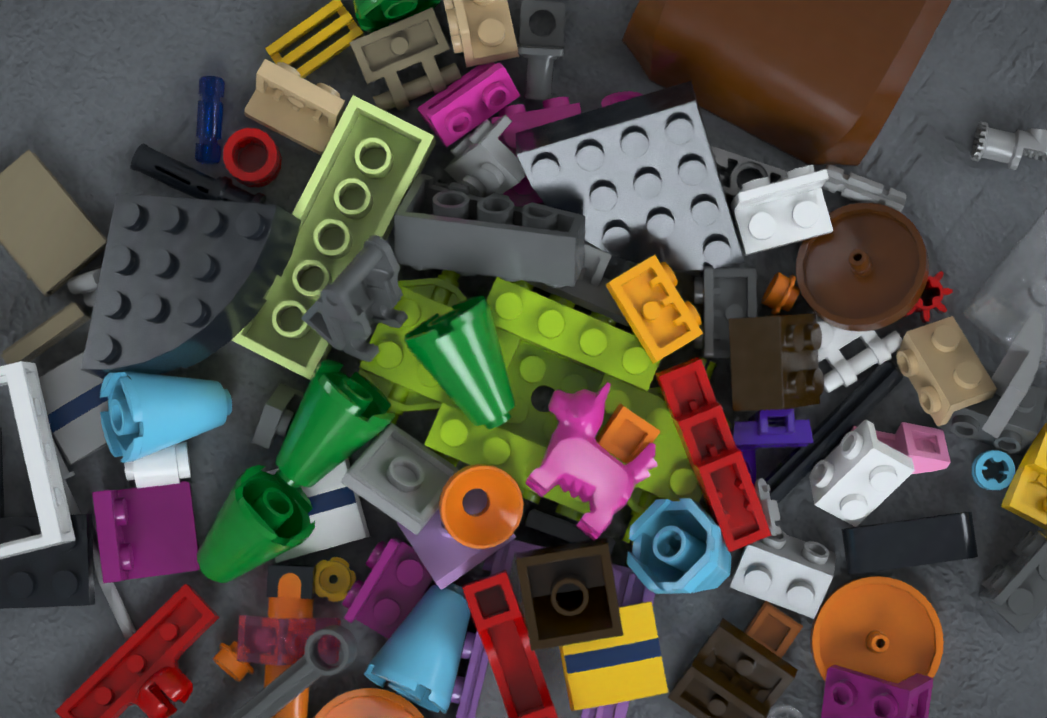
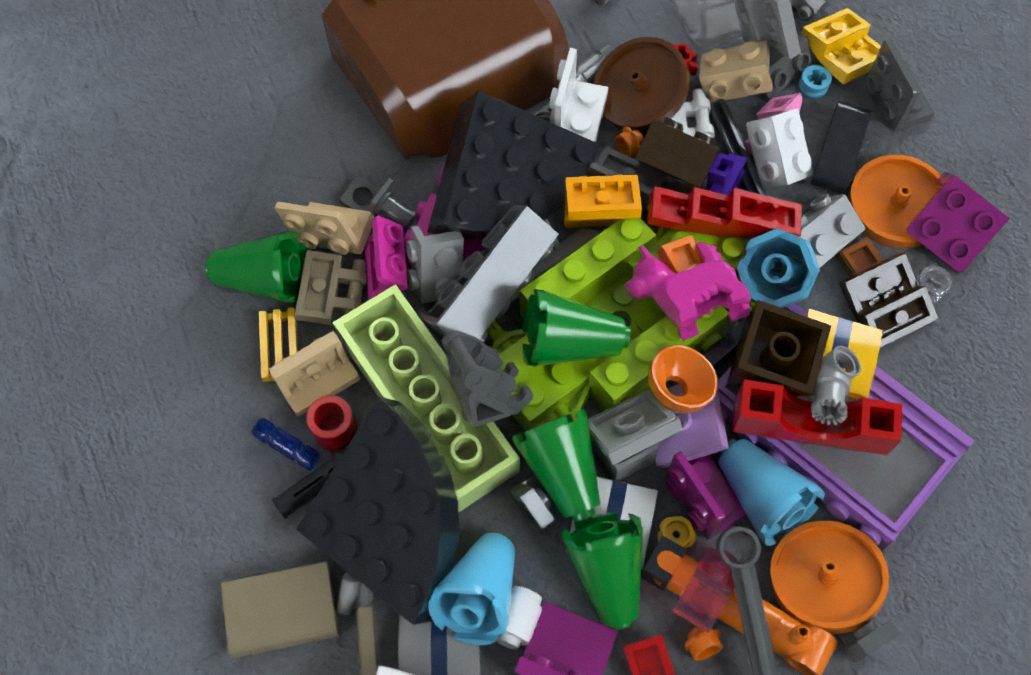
camera: 60 degrees left, 20 degrees down
(556, 669) = (834, 385): none -> light grey connector

